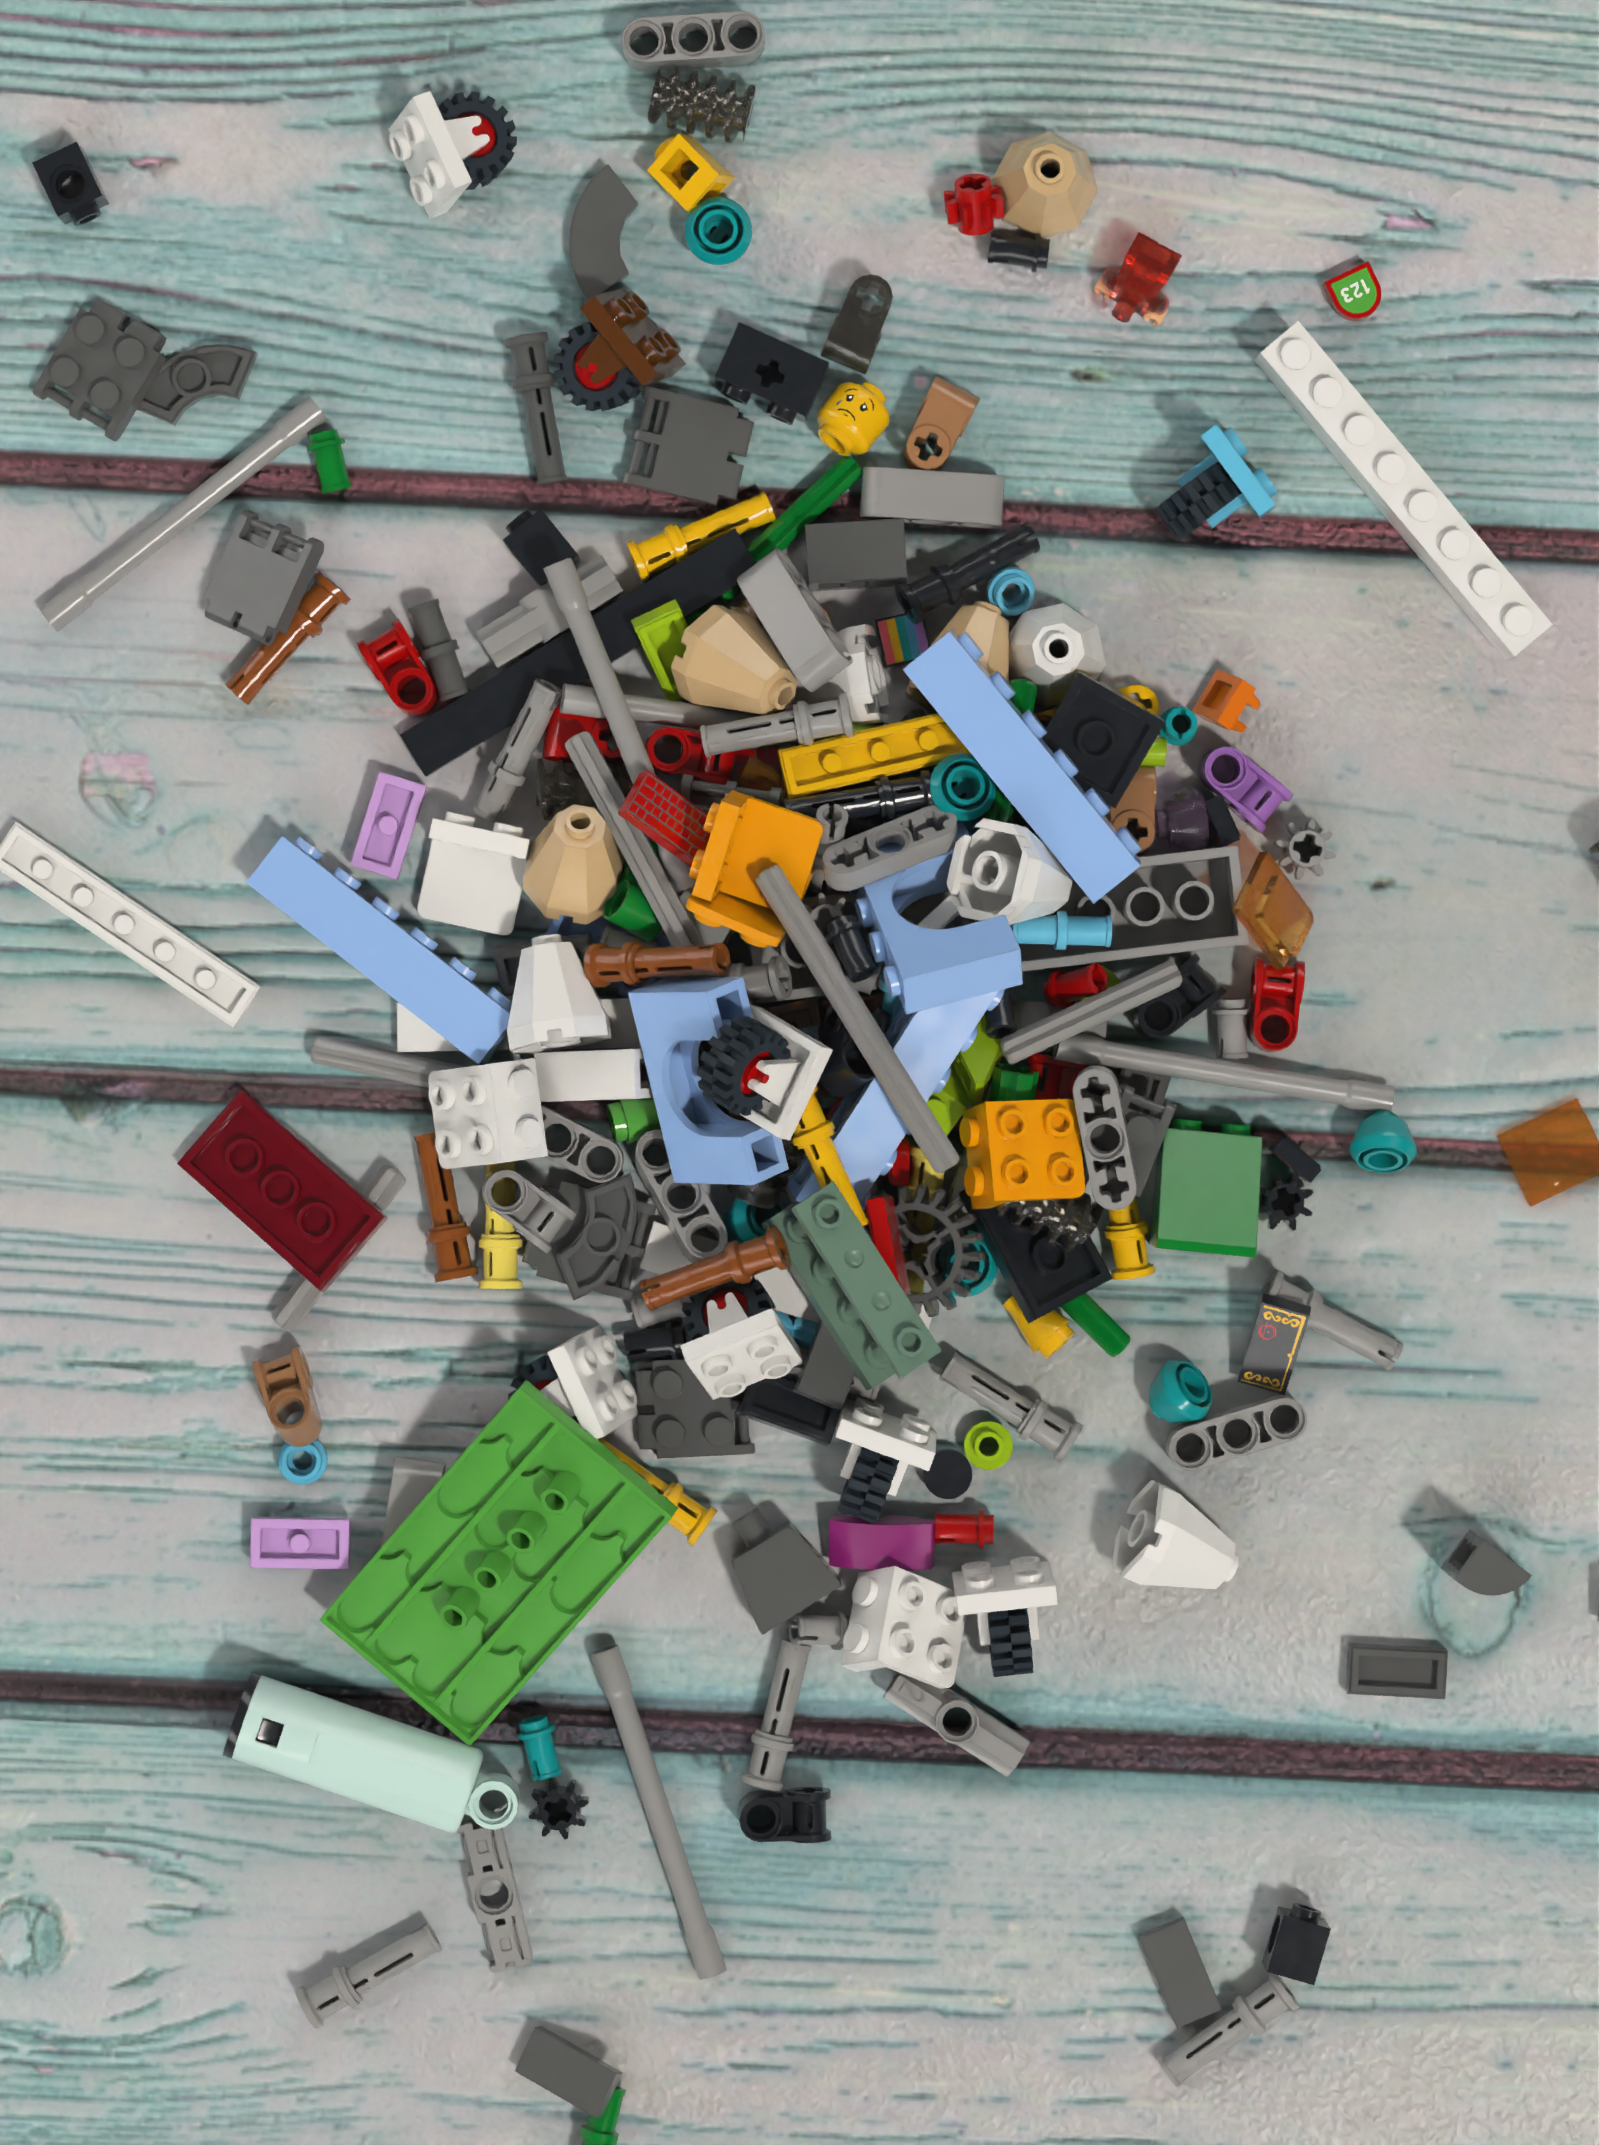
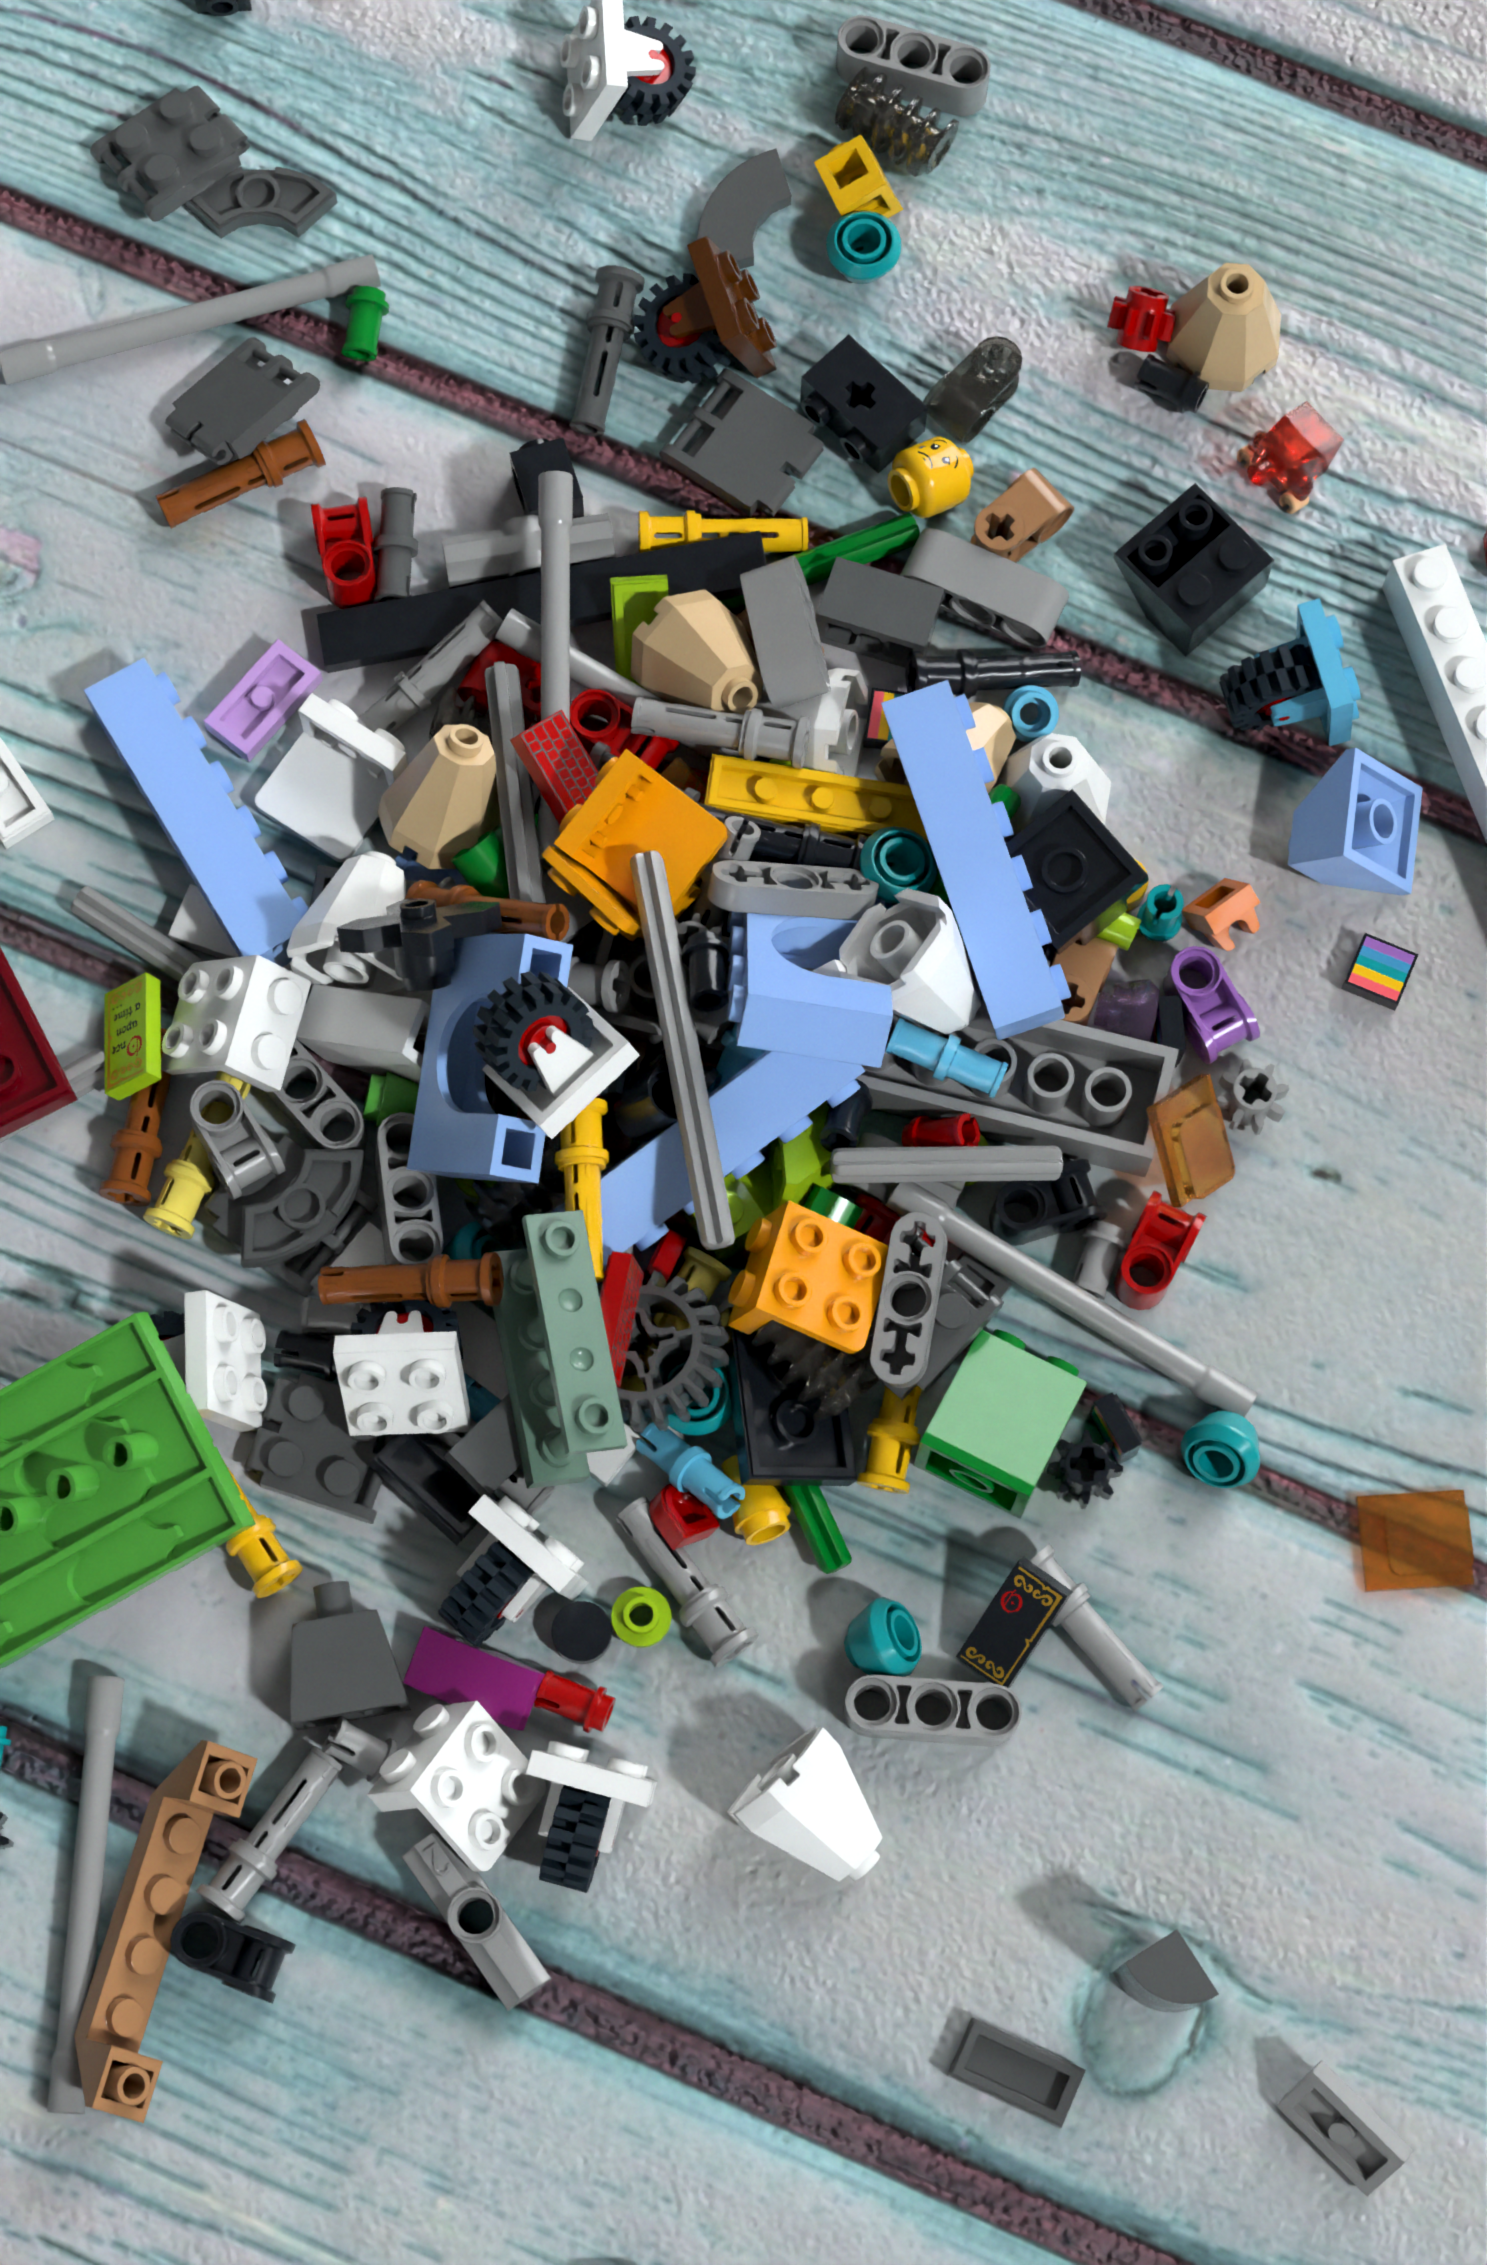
camera: 25 degrees right, 15 degrees down
(408, 1149) = (132, 1036): none -> lime tile
(616, 1008) = (420, 937): none -> black plant
(713, 1826) = (141, 1927): none -> medium nougat slope
(986, 1323) = (691, 1470): none -> medium azure pin
(988, 1357) = (681, 1517): none -> red tile
(1096, 416) = (1192, 569): none -> black slope
(1311, 588) = (1358, 827): none -> light blue slope
(1368, 700) = (1380, 971): none -> tile

